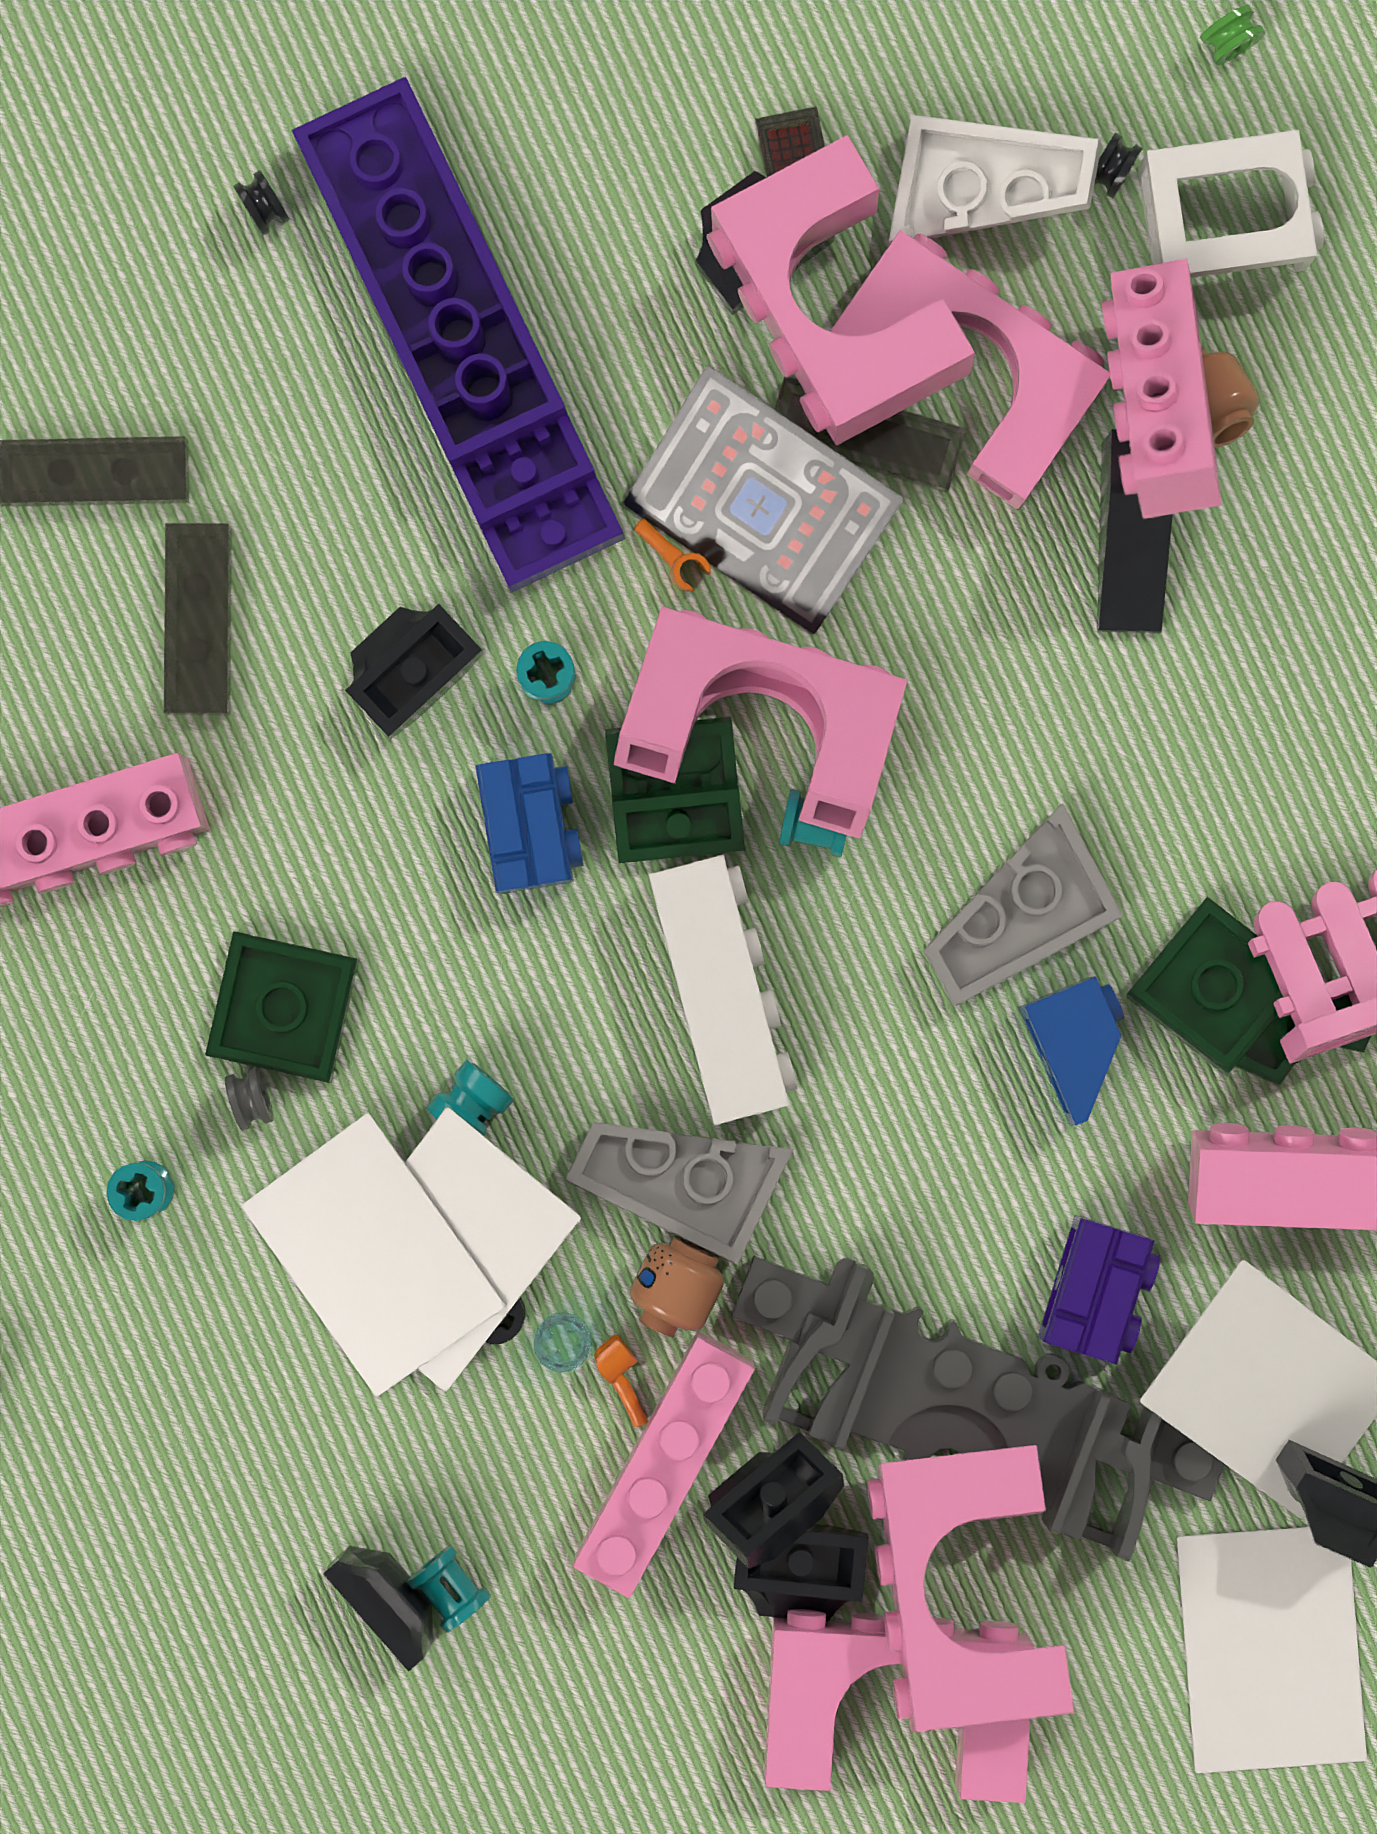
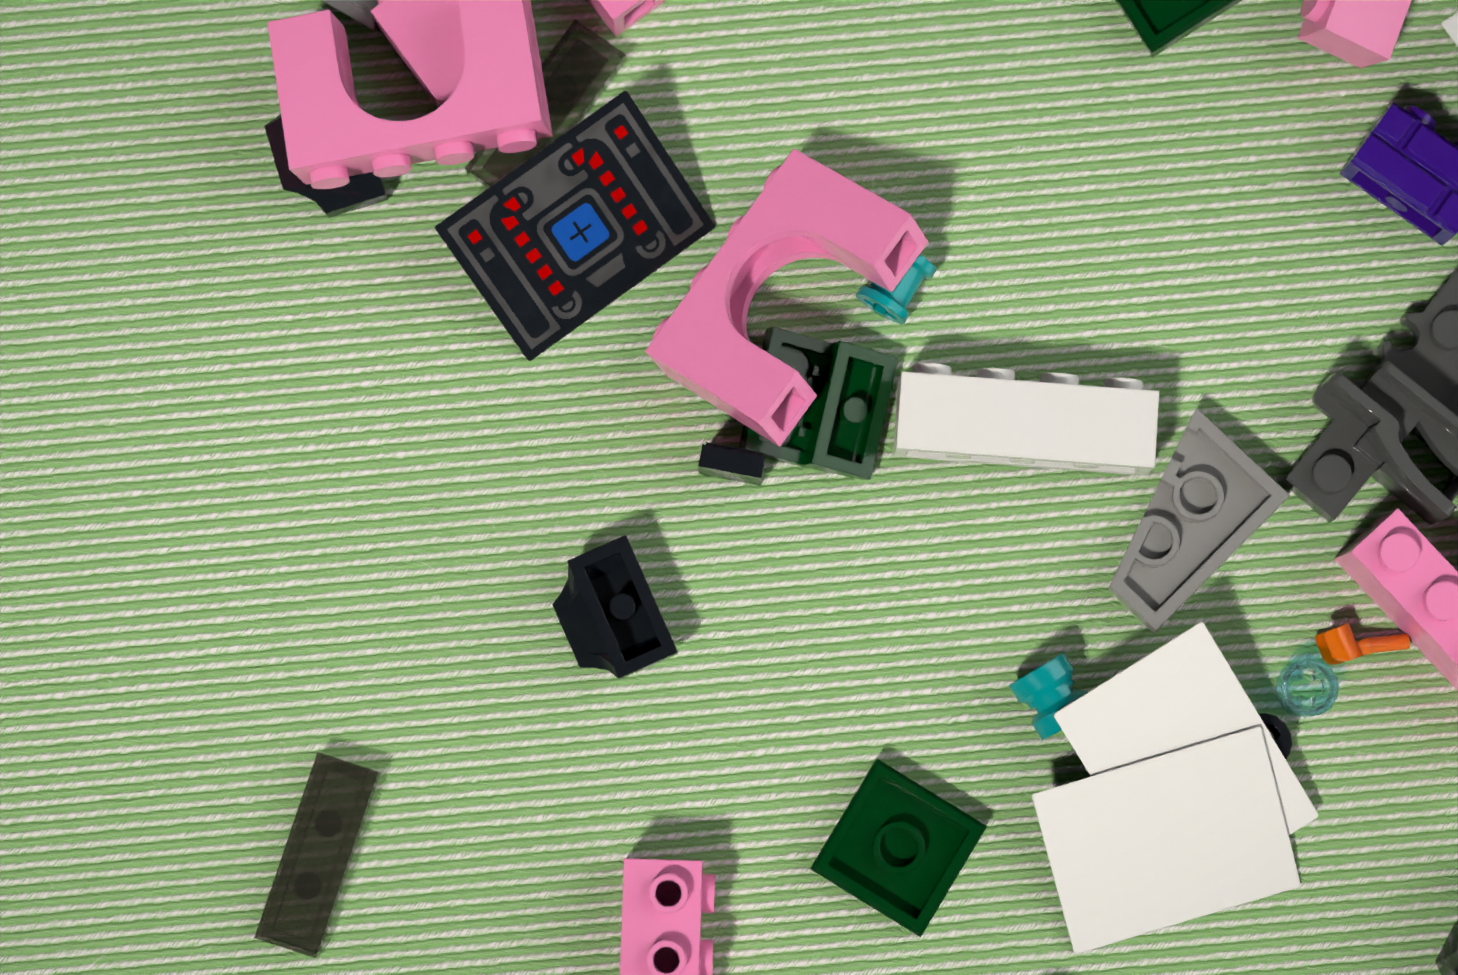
camera: 75 degrees left, 5 degrees down
(197, 618) = (496, 801): clear smoke tile -> none
(249, 1098) = (977, 908): dark grey bush -> none
(261, 202) = (120, 601): black bush -> none
(459, 334) = (314, 457): dark purple slope -> none
(527, 668) = (650, 473): teal bush -> none
(527, 824) = (805, 550): blue brick -> none
(586, 726) = (731, 463): none -> black tile
(670, 553) = (596, 330): orange hand -> none
(676, 1286) = (1292, 559): nougat head -> none
(788, 138) = (246, 90): clear smoke tile -> none
(1024, 913) = (1045, 119): light grey wing -> none
(1075, 1041) = (1182, 114): blue slope -> none

